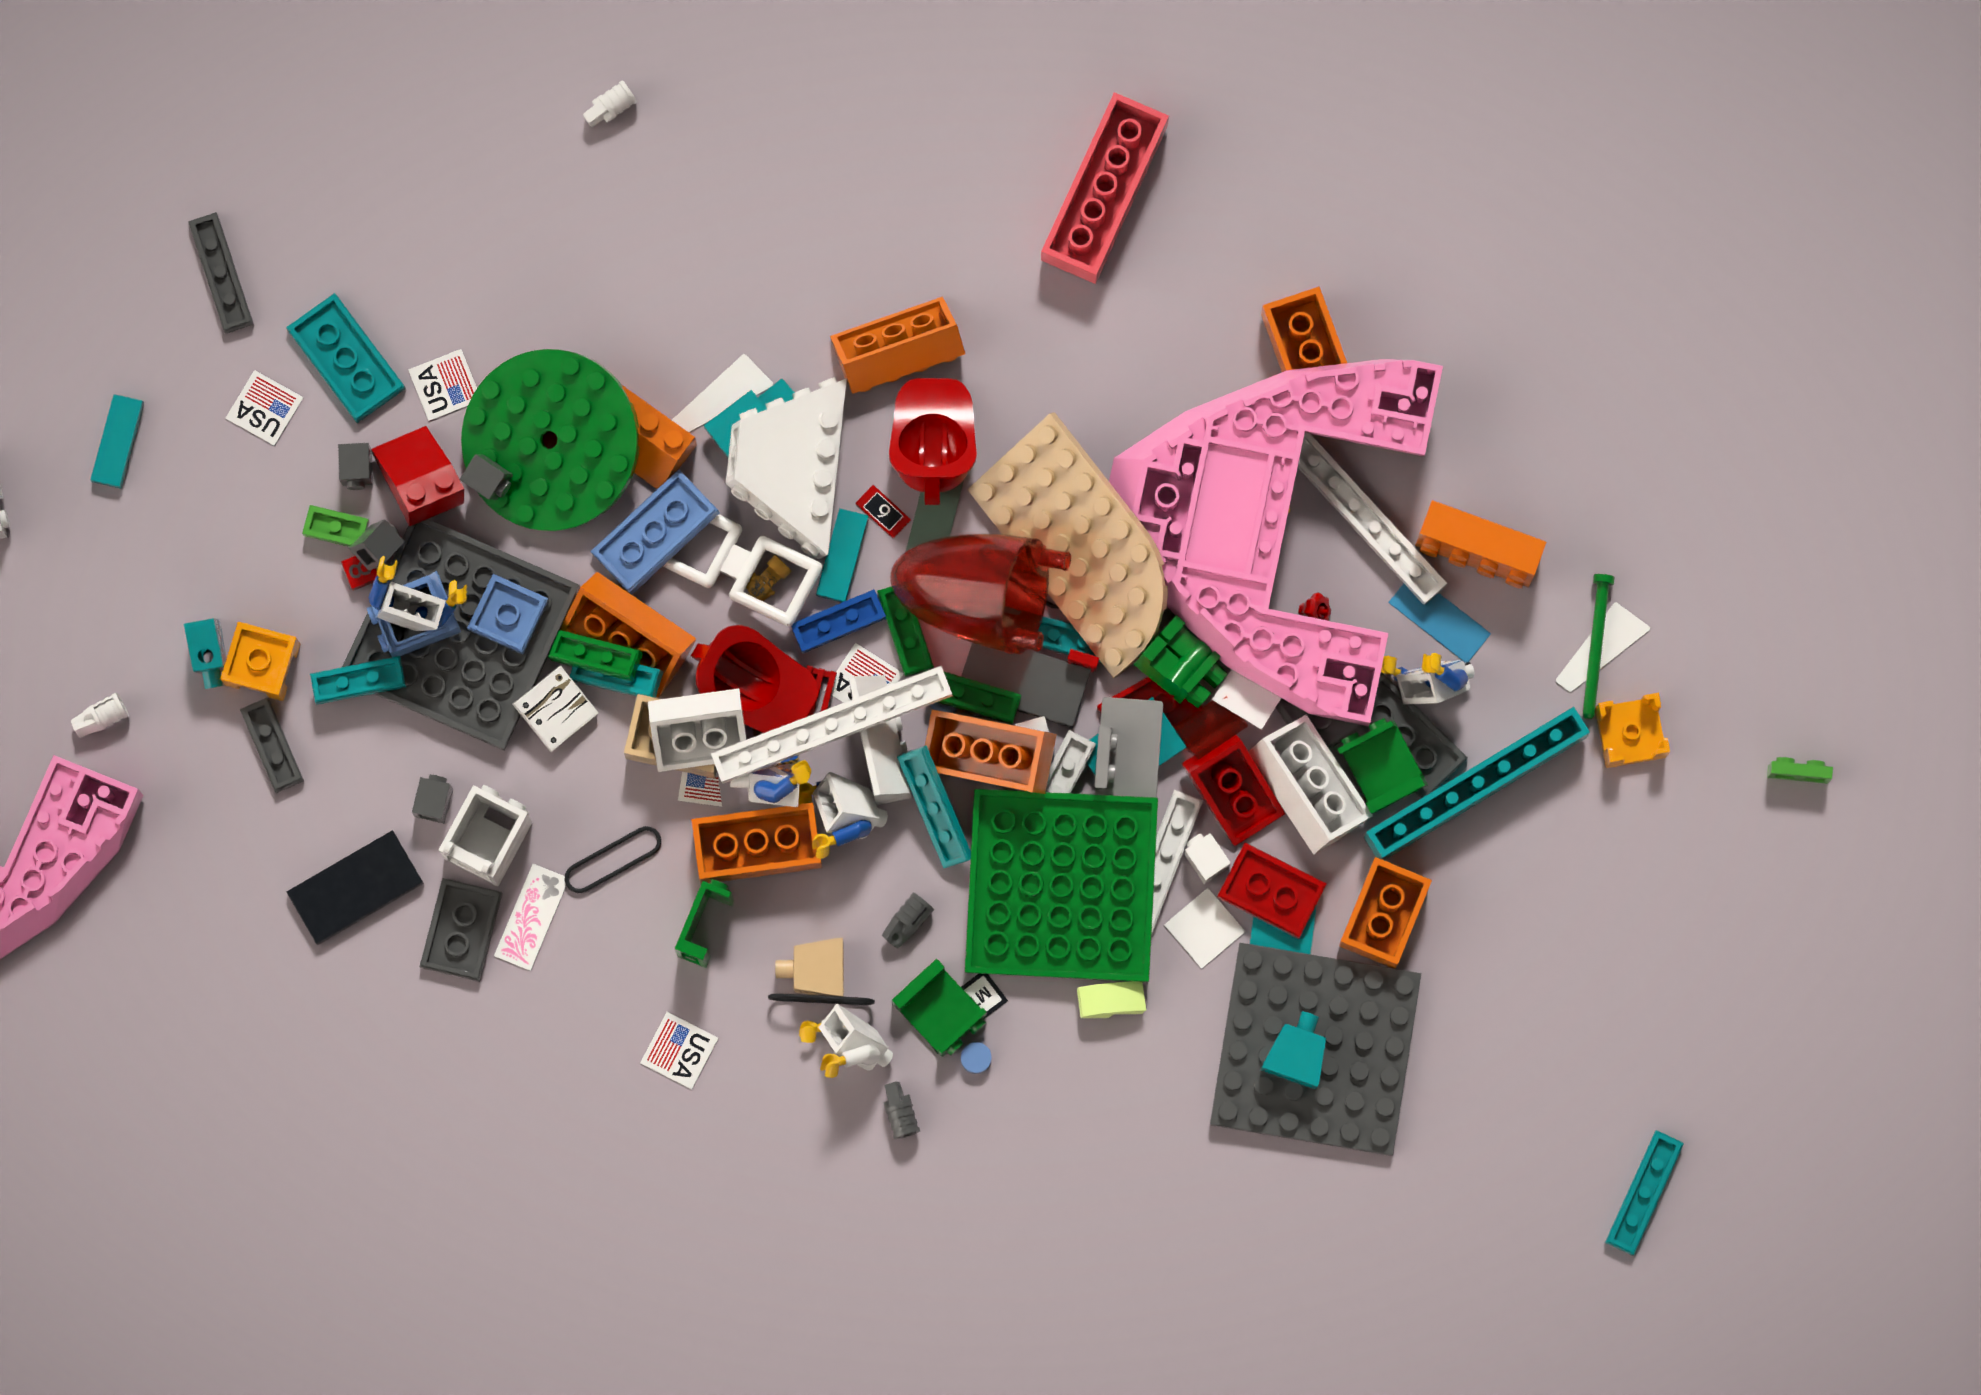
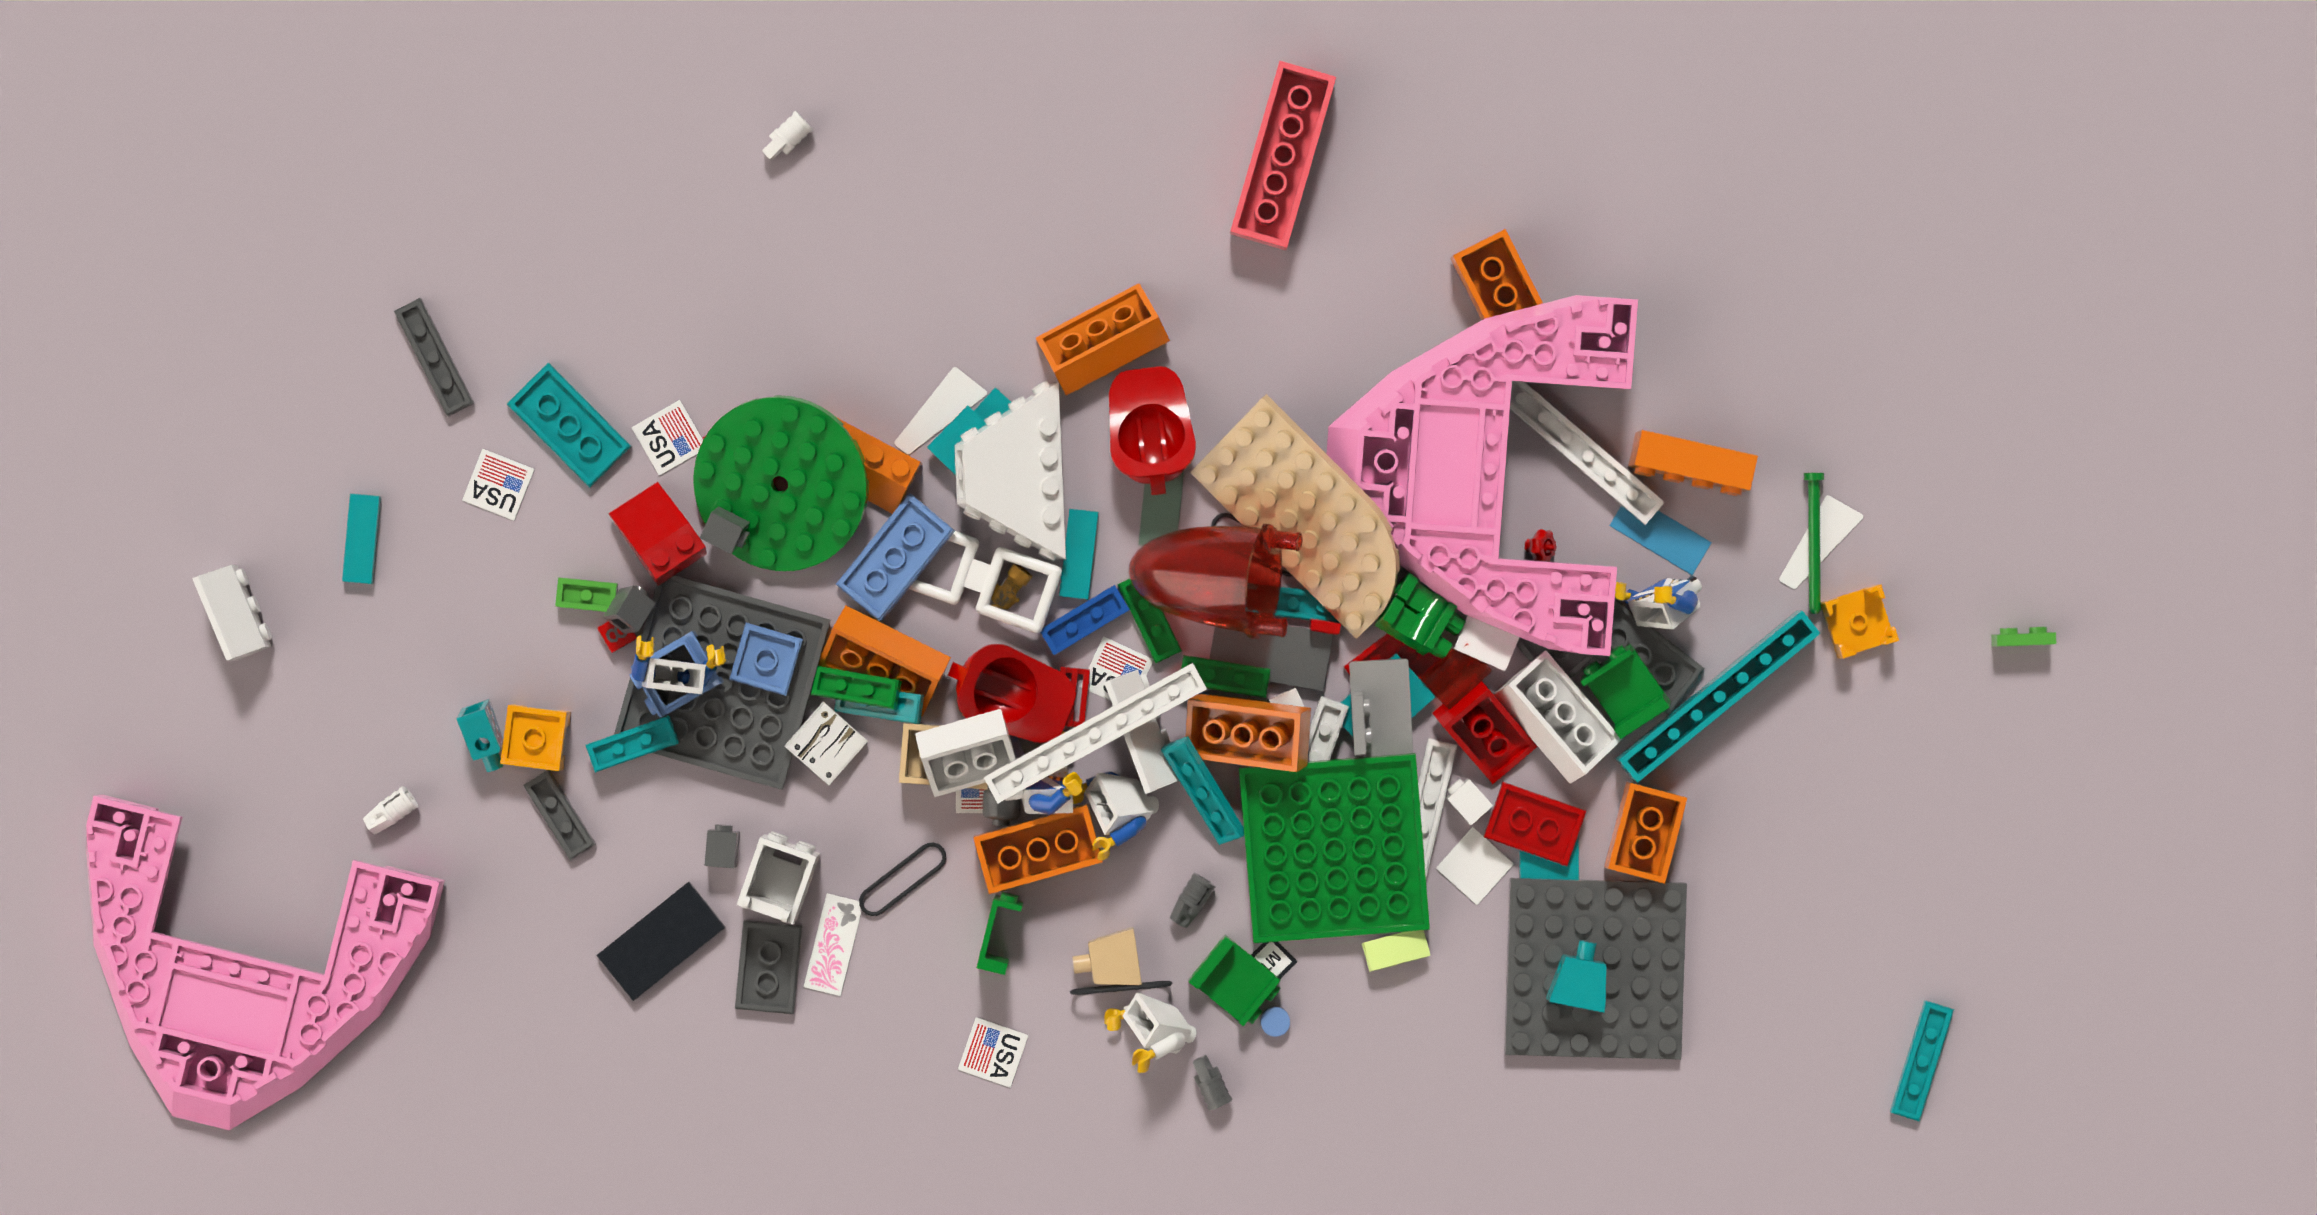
camera: 10 degrees left, 10 degrees up
(355, 465) = (596, 532): dark grey brick -> none
(723, 797) = (1001, 812): none -> dark grey head
(883, 511) = (1111, 503): sticker -> none

